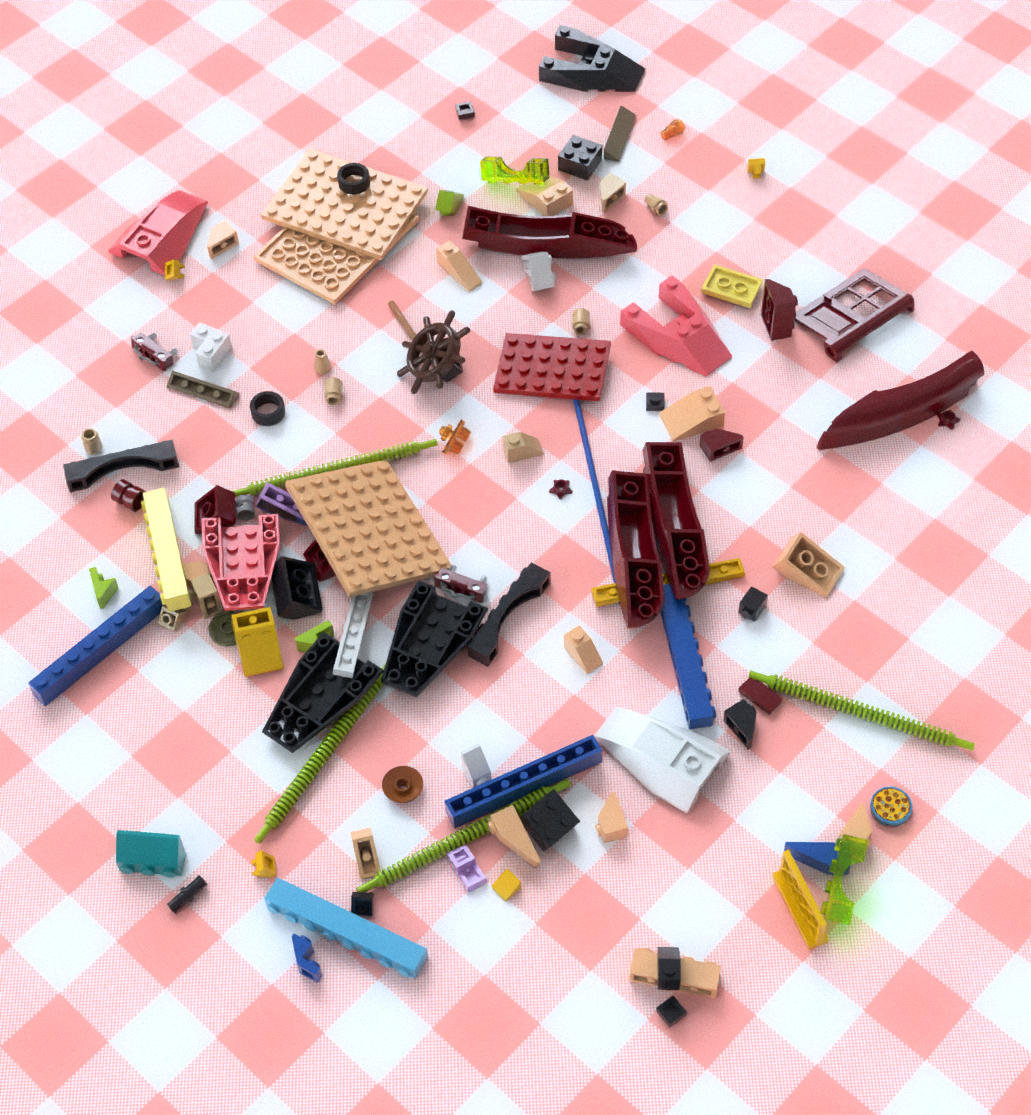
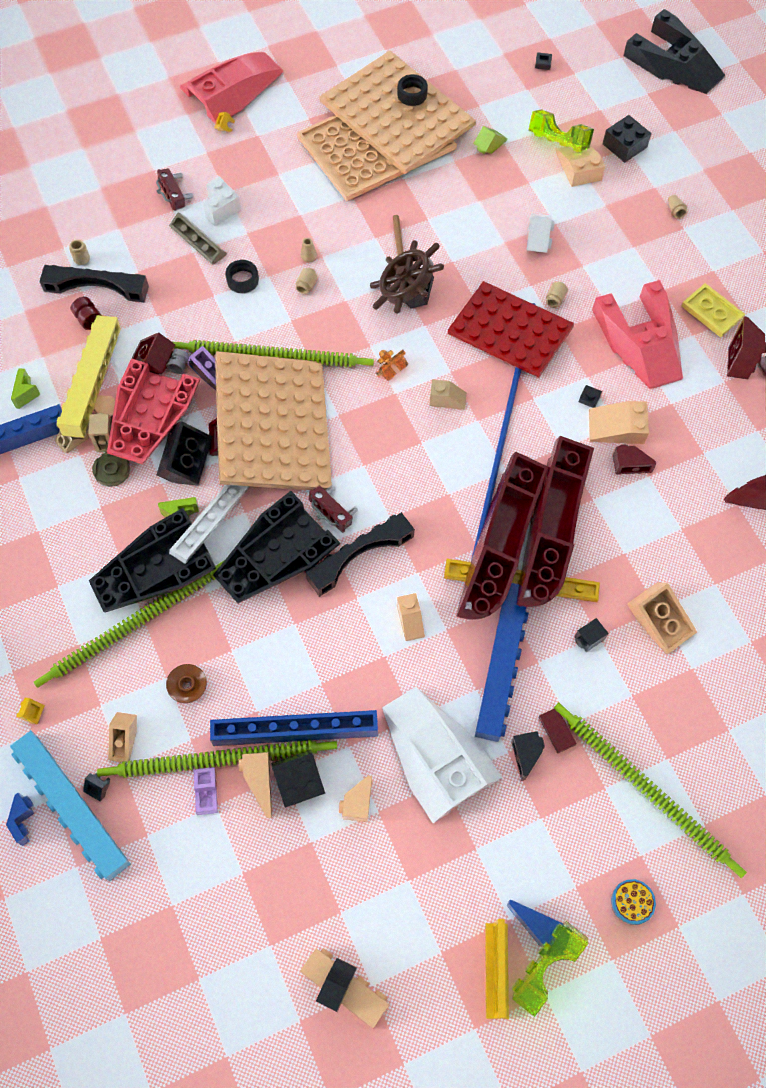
camera: 20 degrees right, 10 degrees up
(221, 238) = (276, 107): light nougat slope -> none
(257, 641) = (124, 493): yellow slope -> none
(456, 264) = (469, 202): light nougat slope -> none
(475, 765) = (257, 696): white slope -> none
(507, 885) = (232, 824): yellow slope -> none
(559, 235) = (568, 204): dark red slope -> none
(560, 484) = (465, 444): dark red plate -> none
(611, 190) = (641, 179): tan slope -> none
(619, 134) = (672, 128): dark tan slope -> none
(671, 1011) = (323, 1026): black plate -> none
(675, 128) = (725, 141): clear orange cone -> none
(859, 825) = (588, 915): light nougat slope -> none

